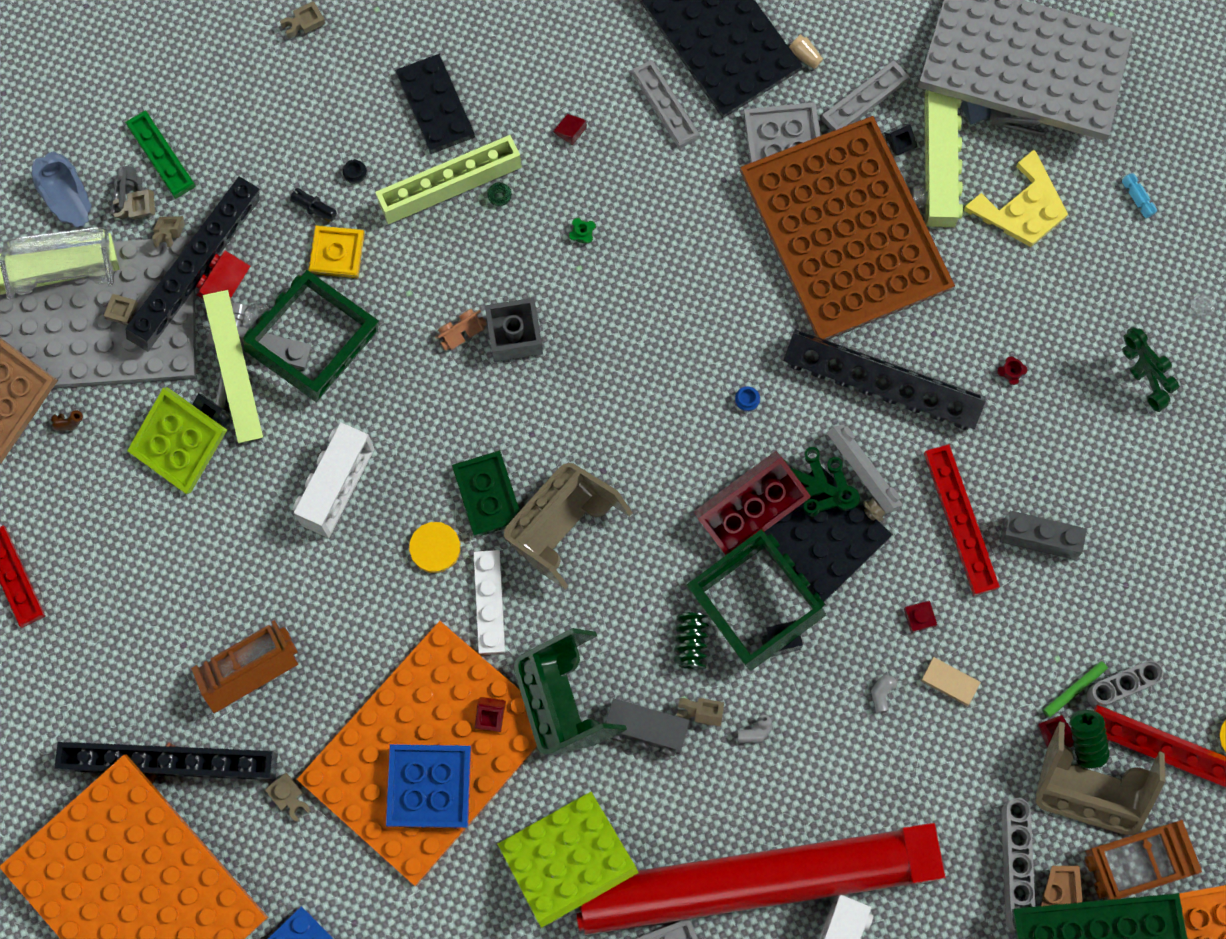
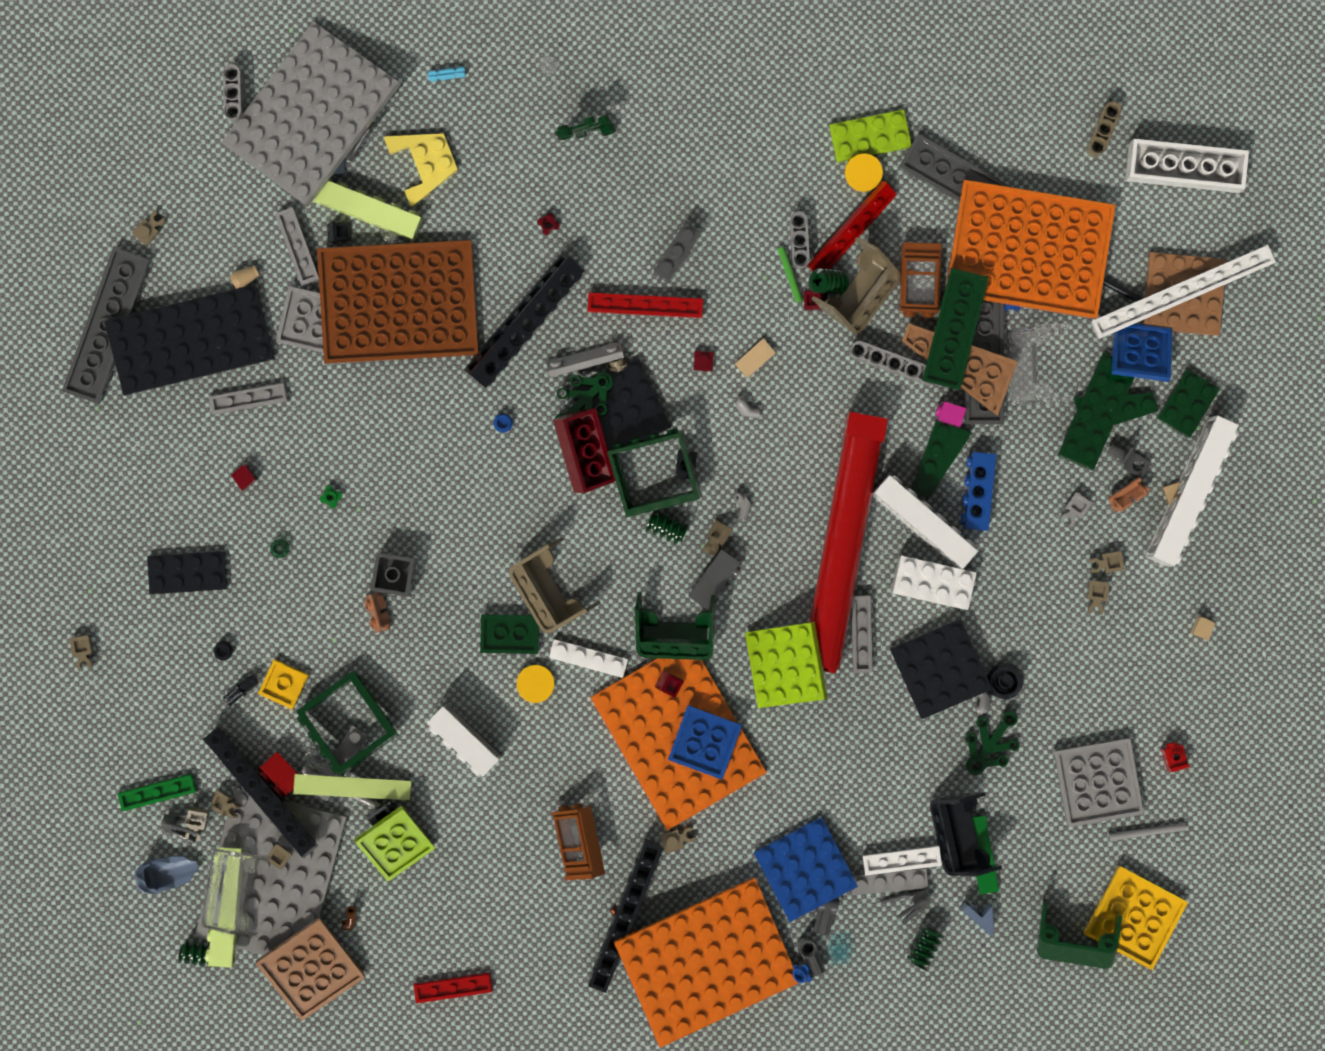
camera: 75 degrees left, 15 degrees up
(449, 179) = (257, 583): yellowish green brick -> none

